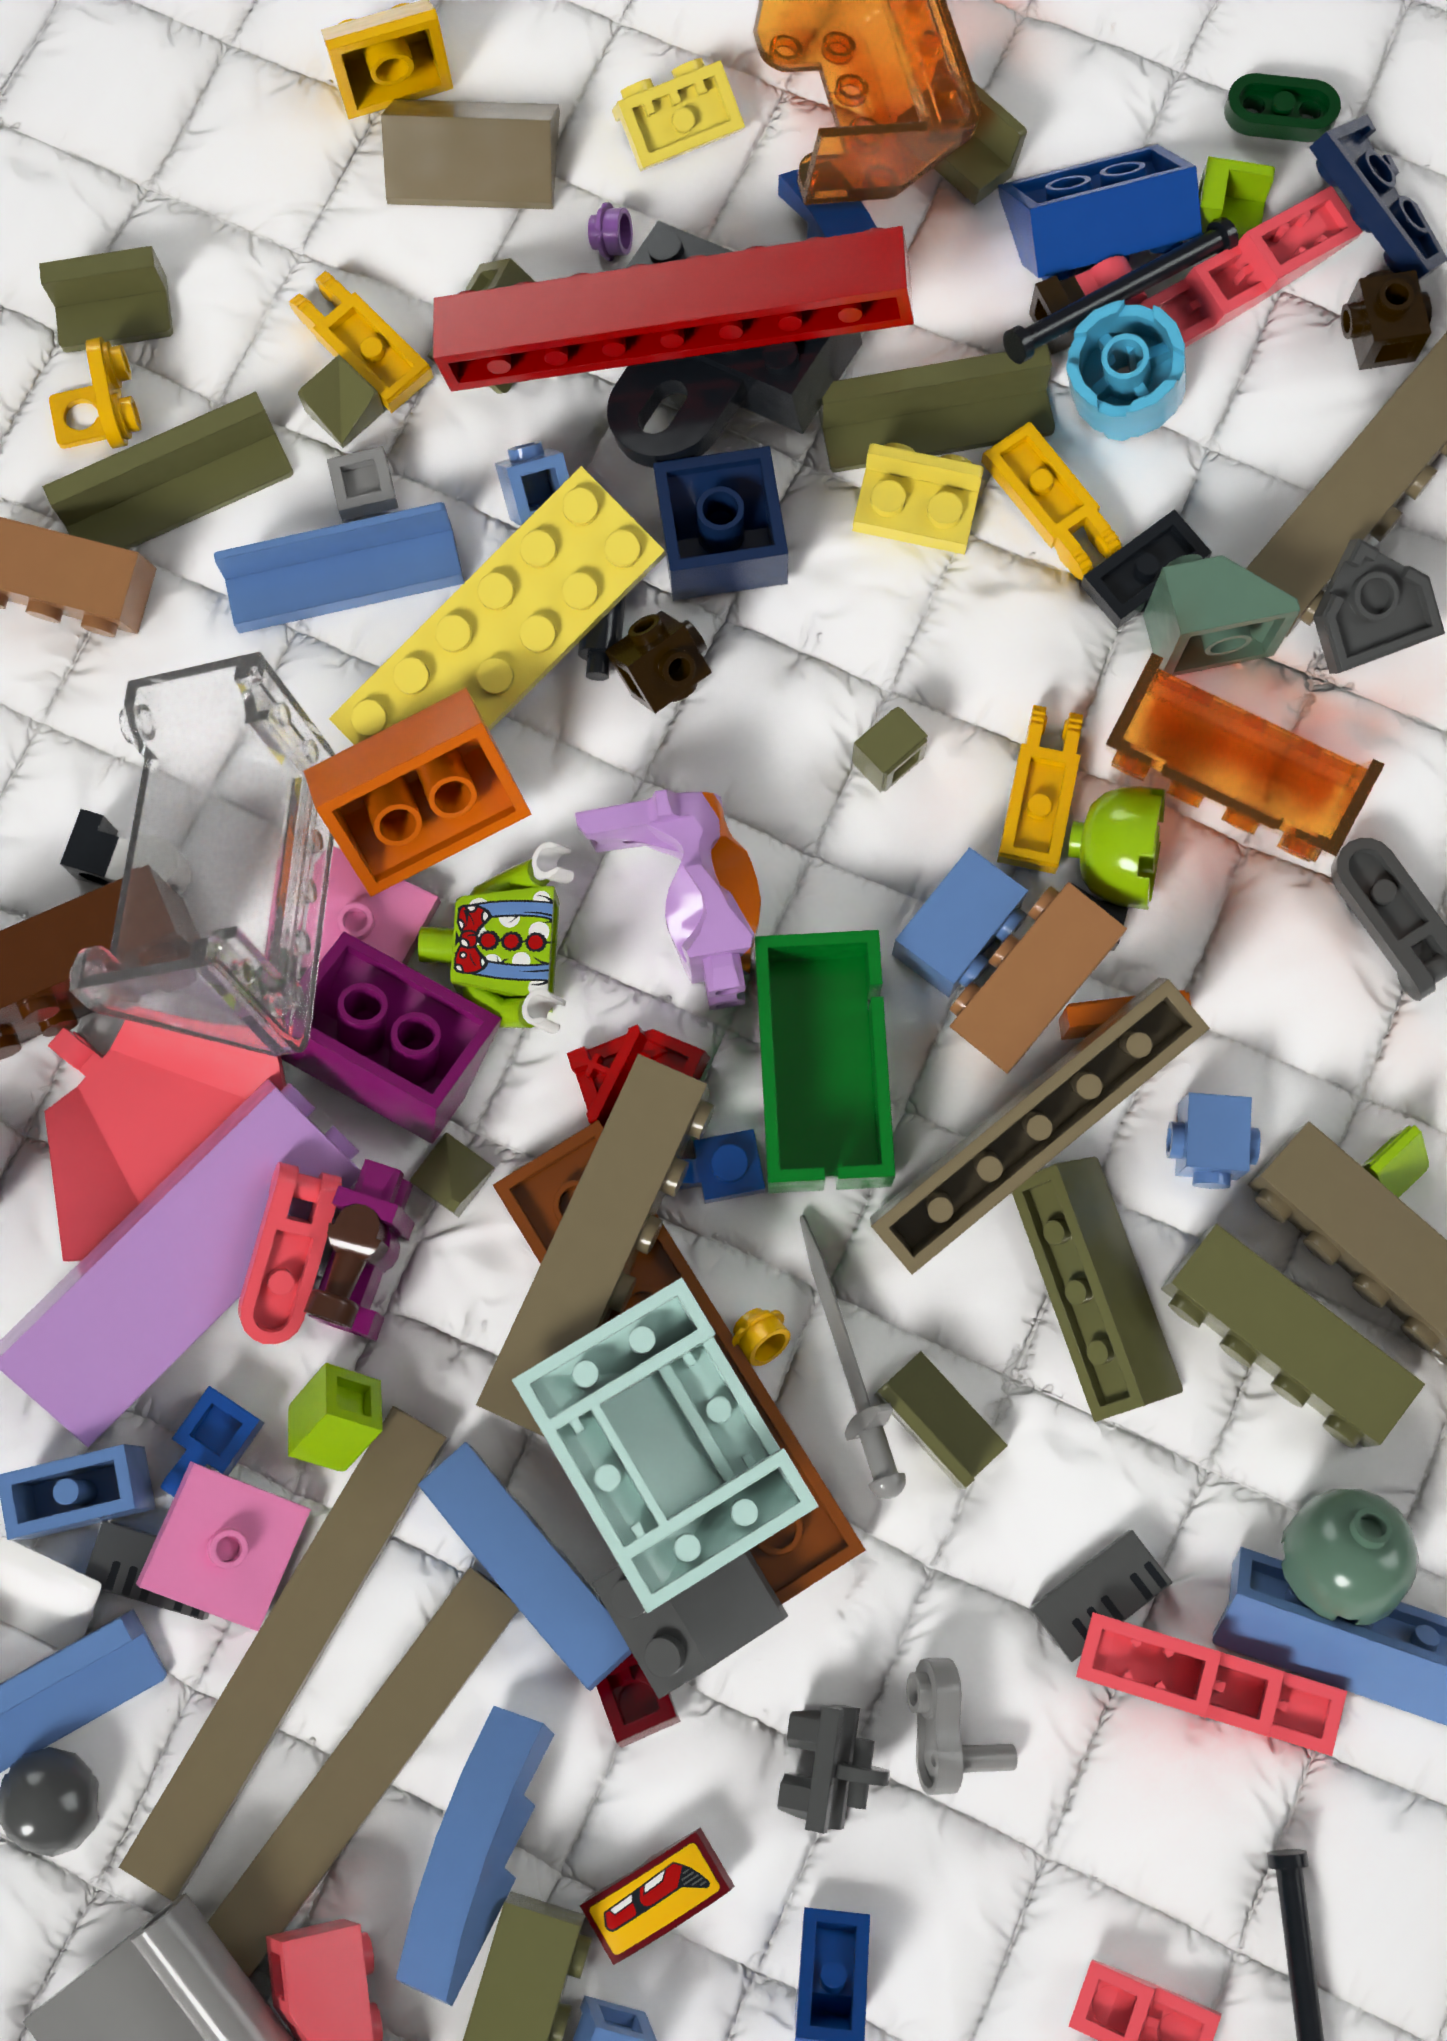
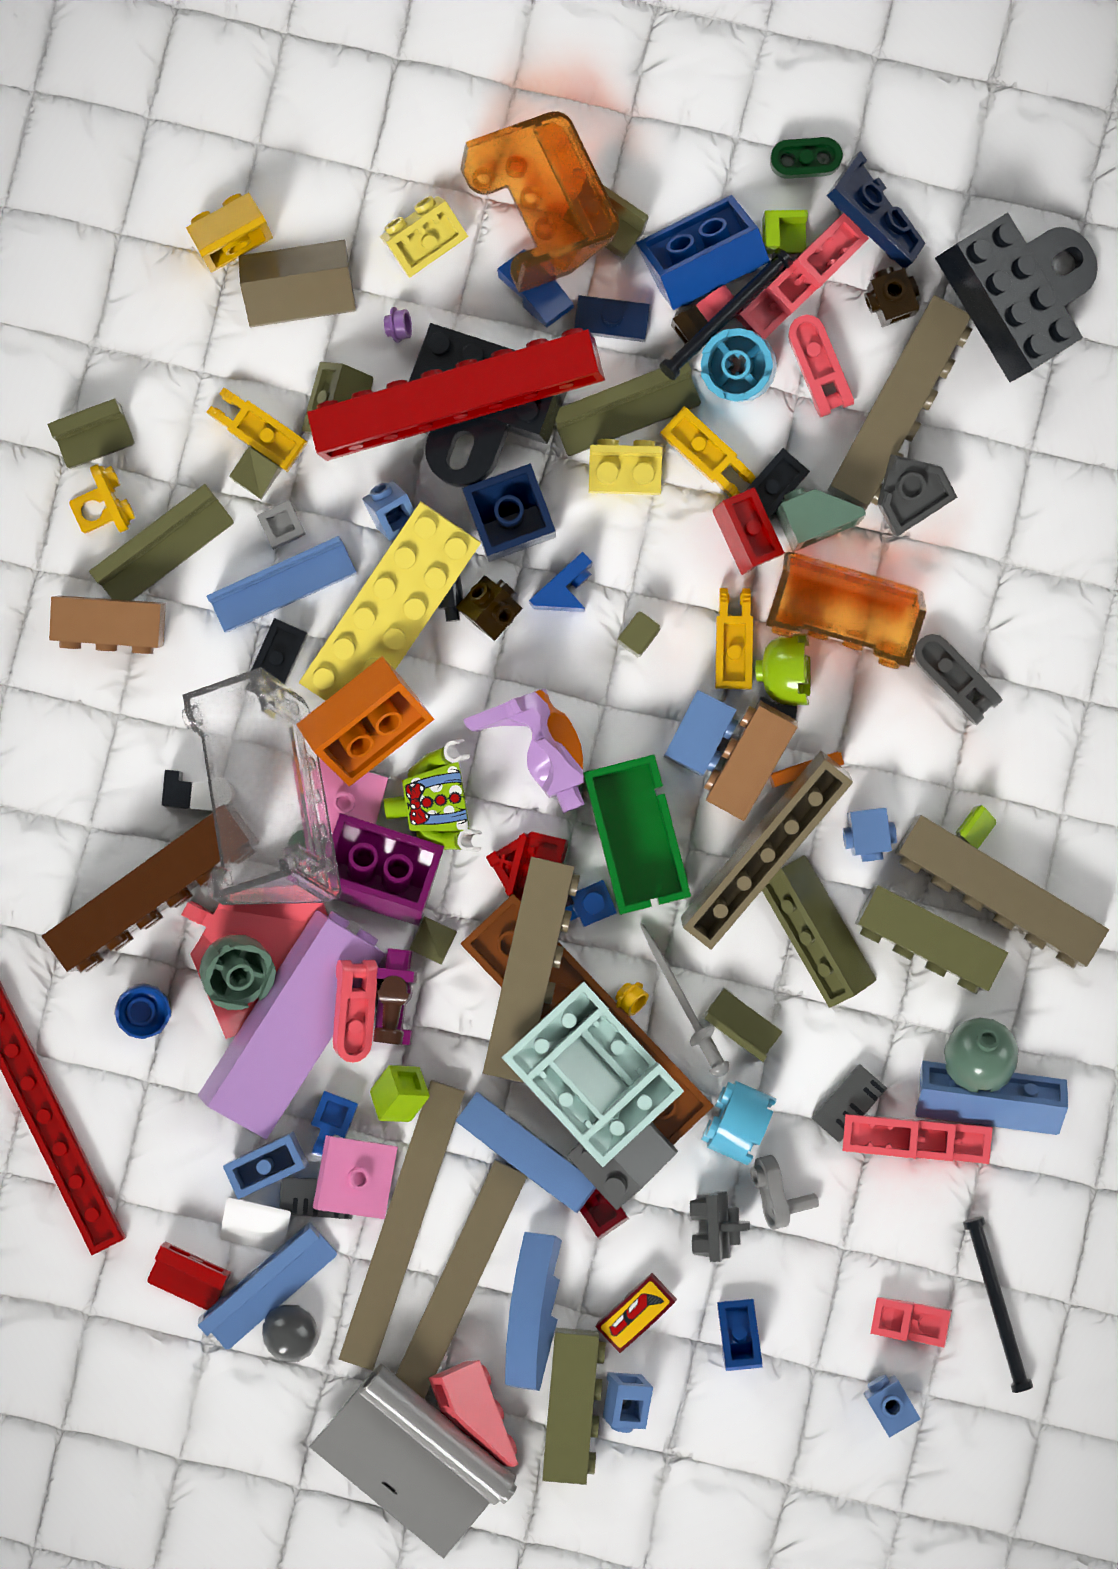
camera: 15 degrees left, 10 degrees up
(104, 1149) = (236, 971): none -> sand green cylinder
(318, 665) = (280, 650): none -> black plate
(770, 661) = (555, 593): none -> blue slope
(906, 1587) = (740, 1121): none -> medium azure brick
(951, 284) = (612, 318): none -> dark blue tile
(1094, 621) = (747, 530): none -> red panel
(1252, 402) = (818, 364): none -> coral plate

